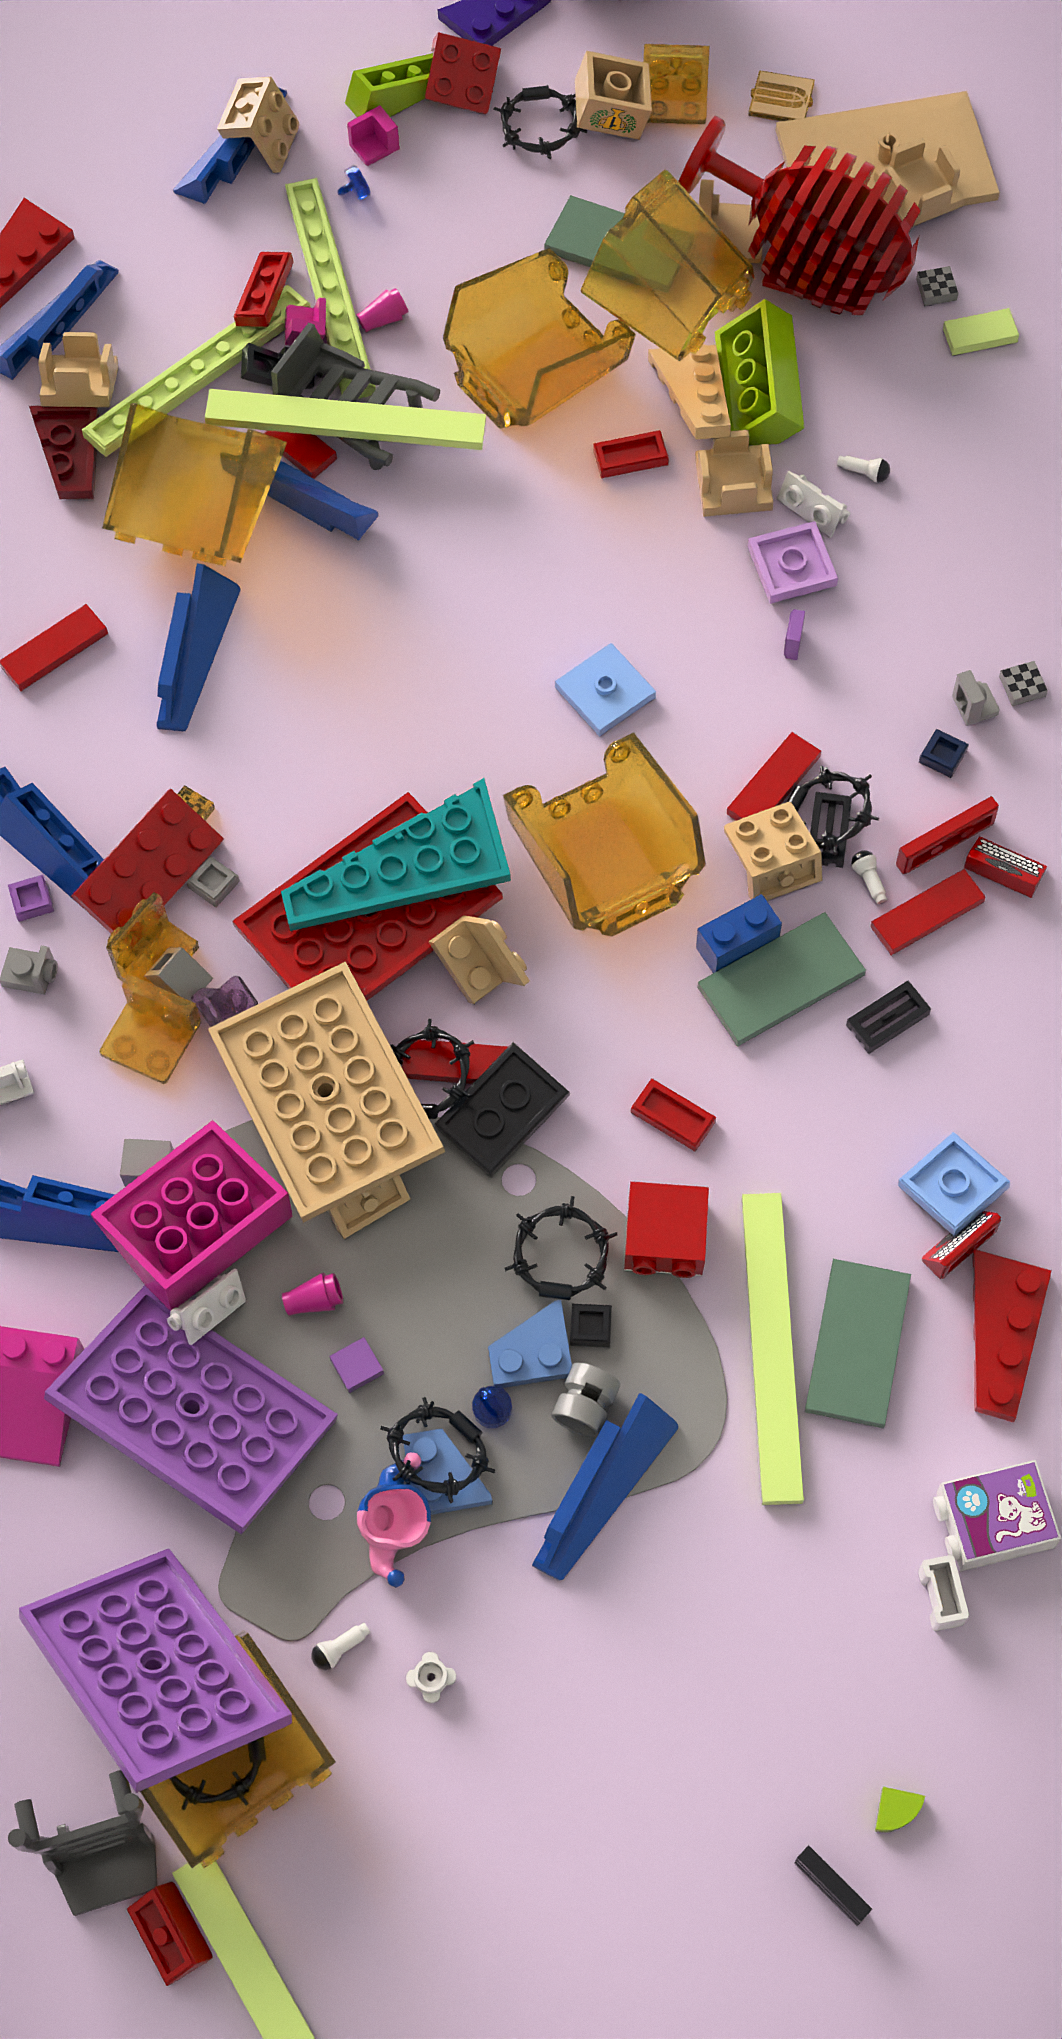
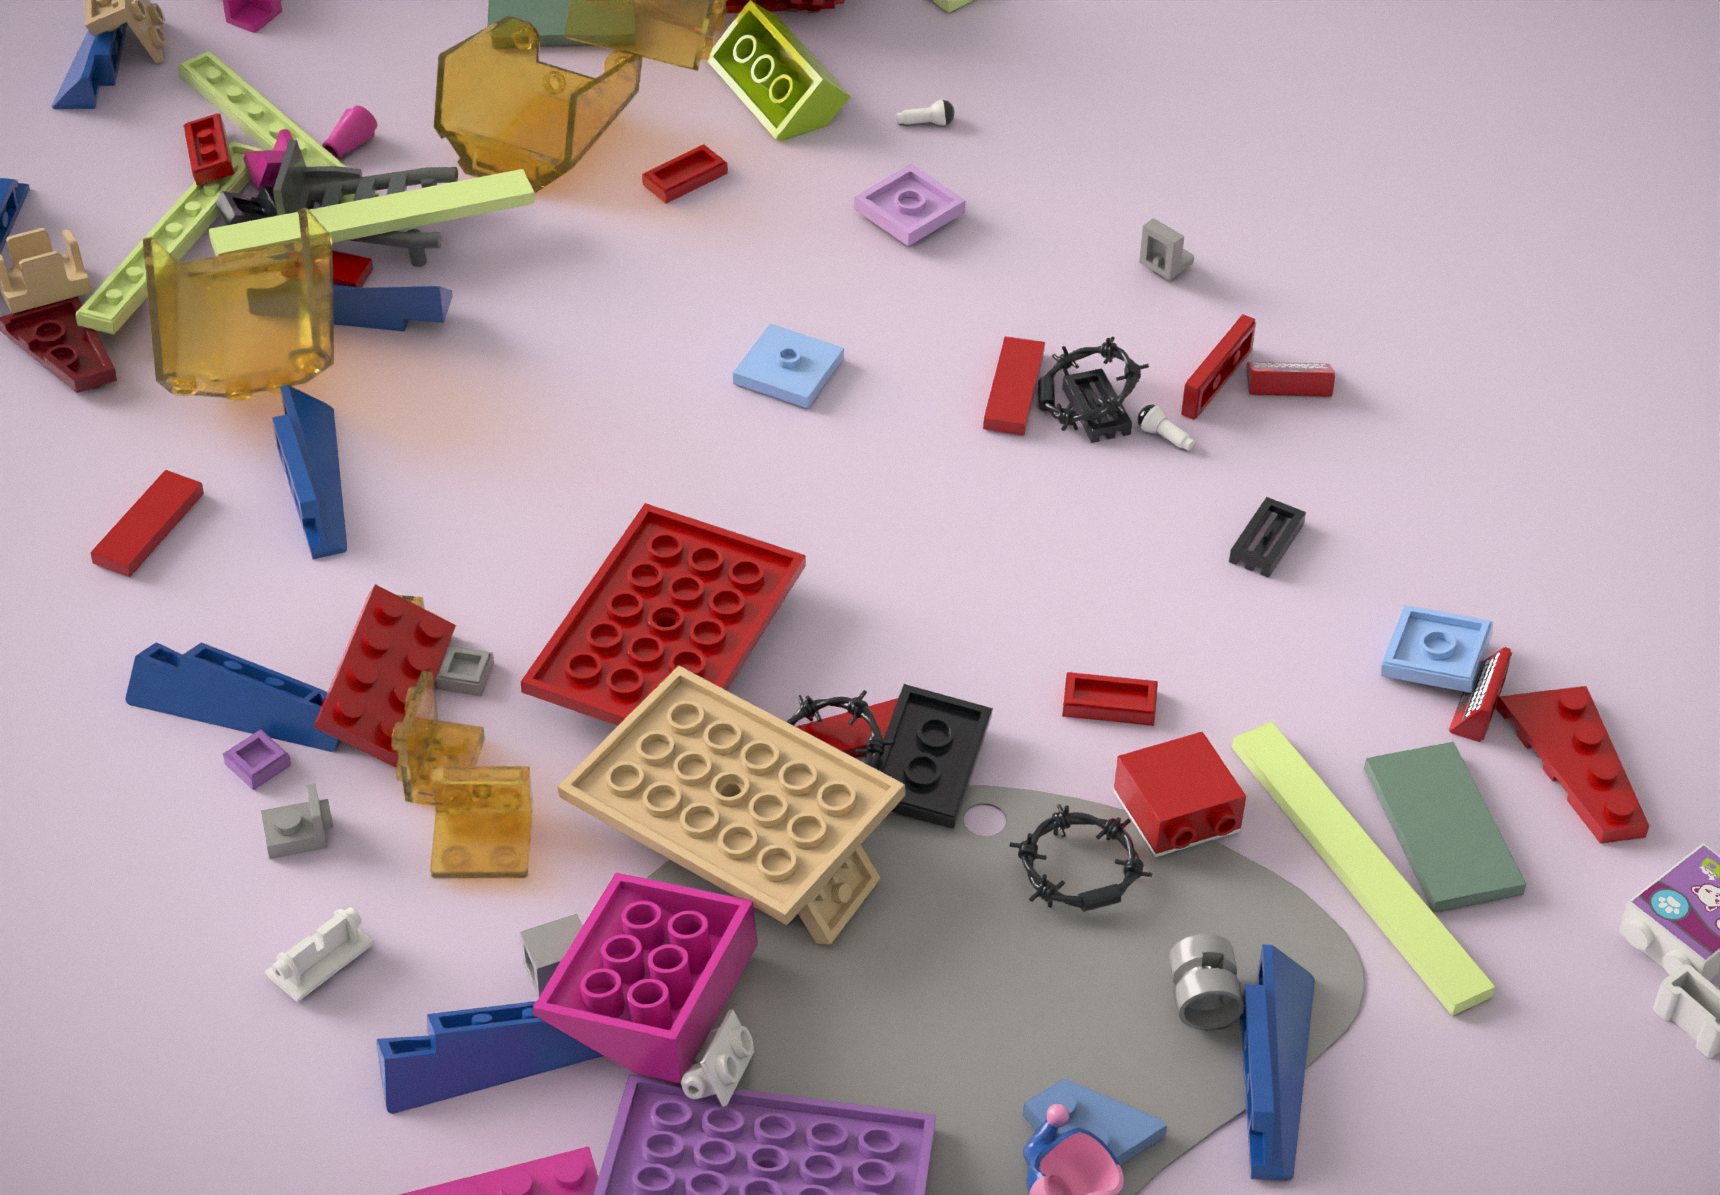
camera: 30 degrees left, 20 degrees down
(178, 973) = (487, 746): light grey brick -> none
(224, 1002) = (554, 763): clear purple bracket -> none
(314, 1295) = (834, 1007): dark pink cone -> none
(355, 182) = (255, 42): clear blue tile -> none
(356, 1365) = (924, 1059): medium lavender tile -> none
(417, 861) = (693, 554): teal wing -> none
(458, 1421) = (1083, 1069): black piece -> none
(478, 957) = (822, 614): tan bracket -> none
(492, 1406) = (1103, 1037): clear blue tile -> none
(532, 1350) = (1112, 968): medium blue wing -> none
(590, 1325) = (1157, 919): black tile -> none
(613, 844) = (901, 467): clear yellow windscreen -> none
(697, 390) = (720, 92): tan wing -> none
(734, 476) = (801, 158): tan panel -> none
(737, 933) = (1072, 515): blue piece -> none
(775, 851) = (1066, 427): tan bracket -> none
(781, 978) = (1137, 543): sand green tile -> none
(794, 634) = (953, 258): medium lavender tile -> none
(810, 504) = (893, 152): white hinge -> none
(927, 911) = (1242, 438): red tile -> none
(943, 753) = (1164, 309): dark blue tile -> none
(1023, 683) = (1201, 230): light grey tile -> none

